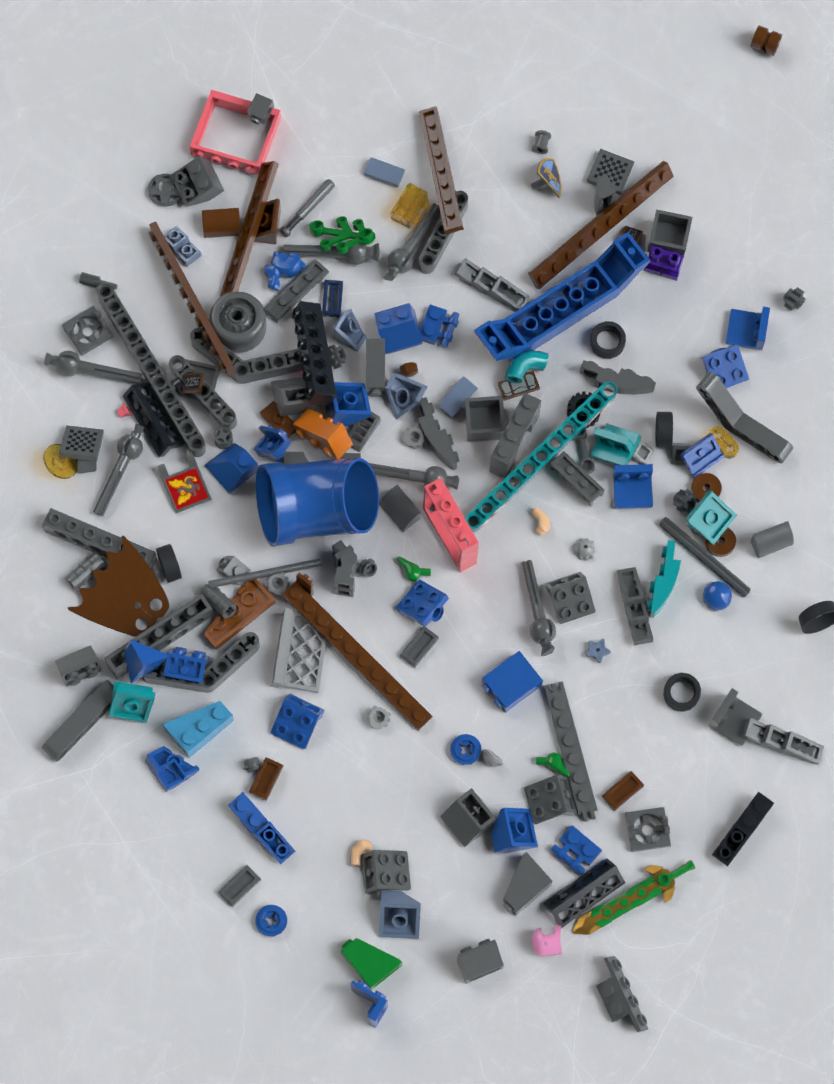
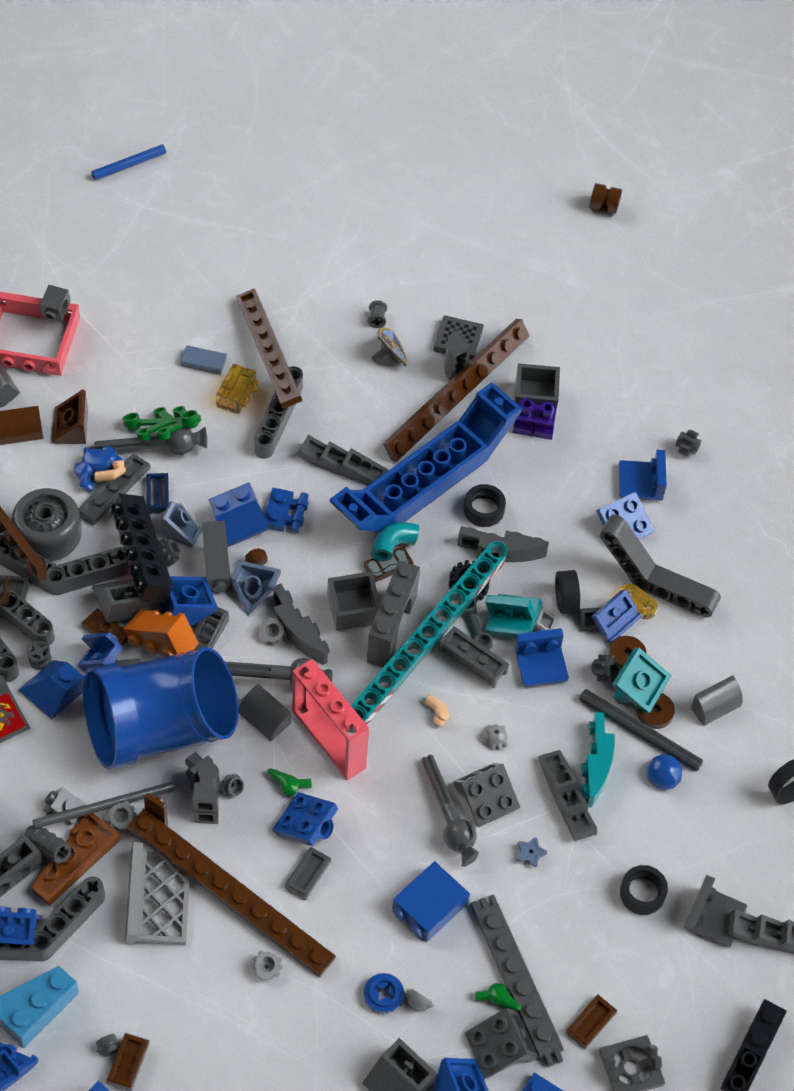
camera: 10 degrees left, 15 degrees down
(249, 227) = (54, 423): reddish brown tile -> none
(295, 279) = (110, 475): none -> light nougat arm
(296, 721) = (160, 983): blue bracket -> none
(313, 201) = (122, 398): dark grey piece -> none
(401, 259) = (234, 443): dark grey piece -> none
(456, 397) = (317, 581): sand blue slope -> none

